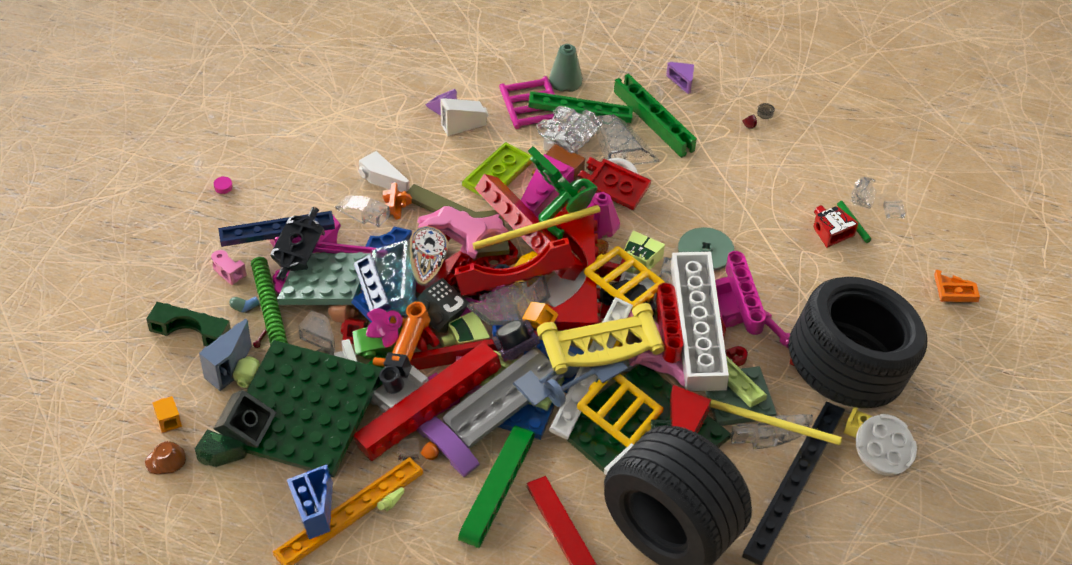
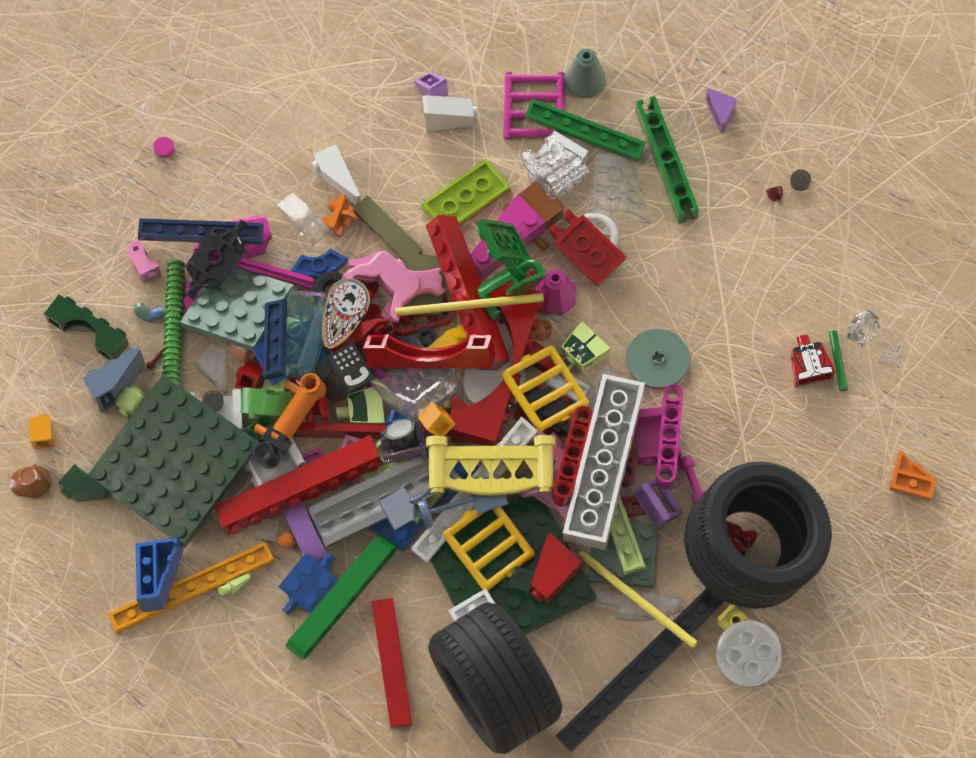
camera: 20 degrees right, 20 degrees up
(245, 419) = (112, 464): pearl dark grey slope -> none
(382, 327) = (269, 393): dark pink plate -> none
(462, 481) = (308, 583): none -> blue plate
(752, 348) = (652, 505): none -> medium lavender tile

